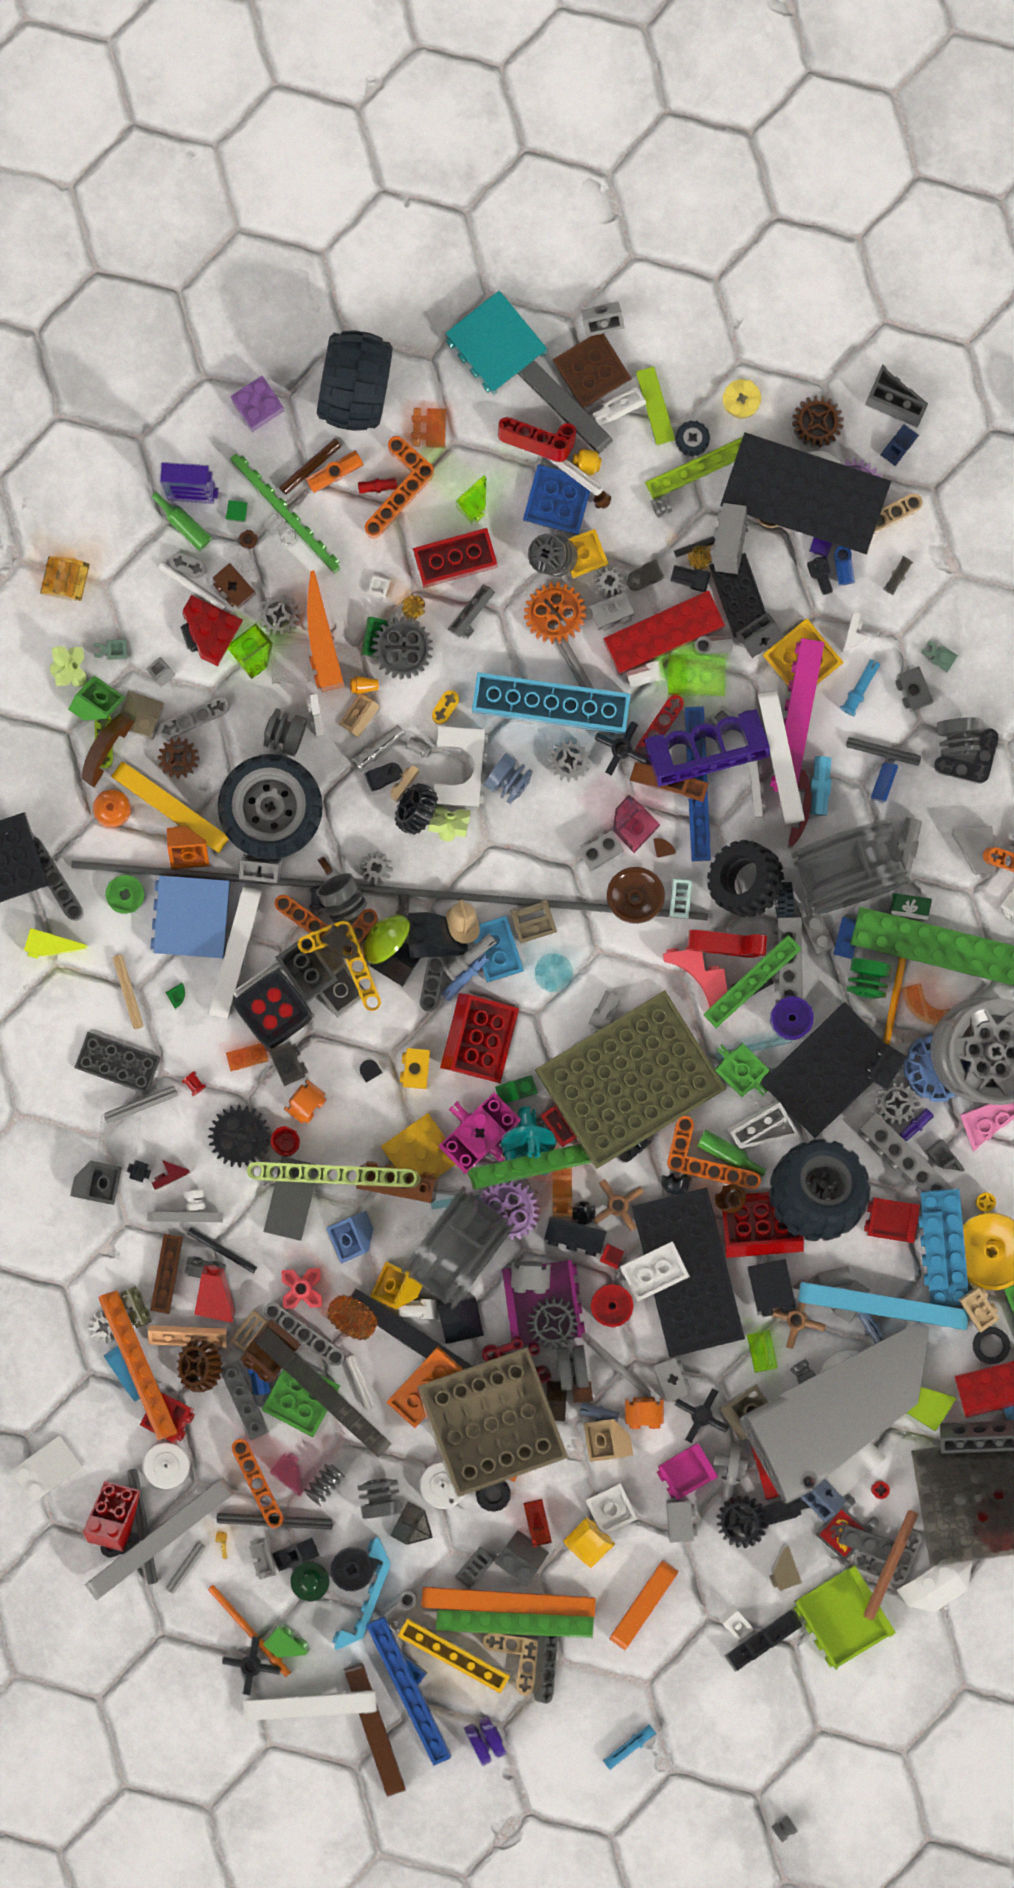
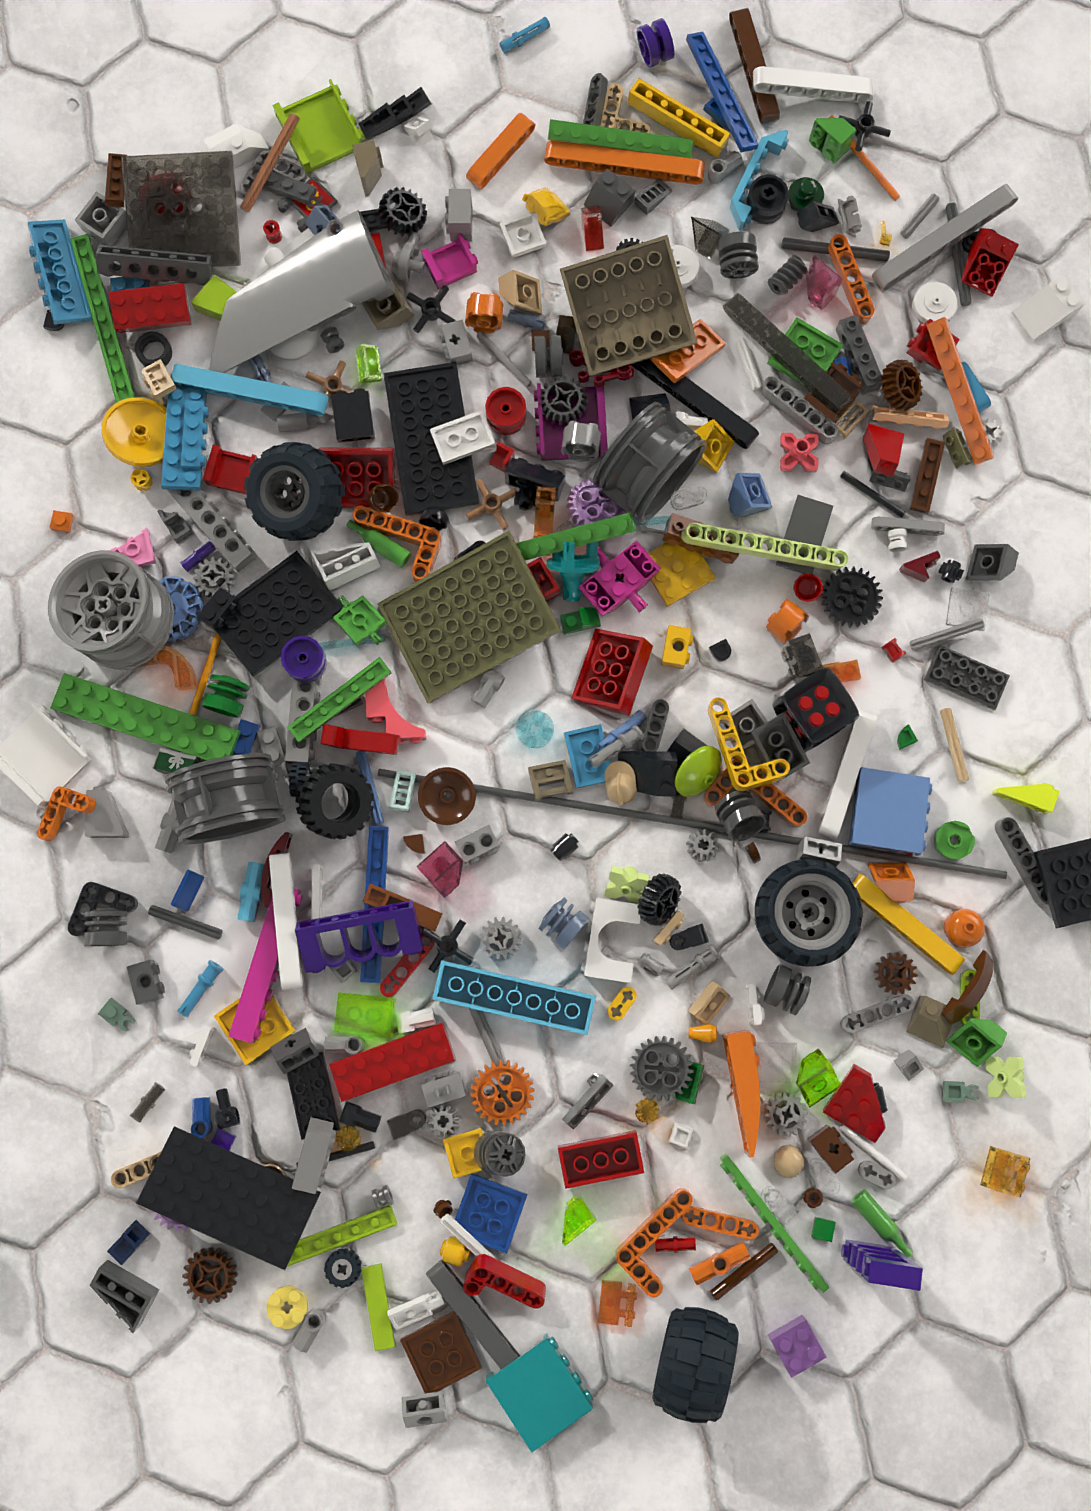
camera: 175 degrees left, 5 degrees down
(273, 571) = (788, 1161): none -> tan hair
(273, 966) = (829, 742): white axle -> none
(336, 506) = (719, 1224): none -> orange beam
(337, 940) = (749, 764): clear smoke piece -> none
(352, 1317) = (754, 416): clear orange gear -> none
(513, 855) = (564, 846): none -> black brick
(718, 378) = (309, 1330): none -> light grey piece
(718, 911) = (366, 771): none -> medium blue axle

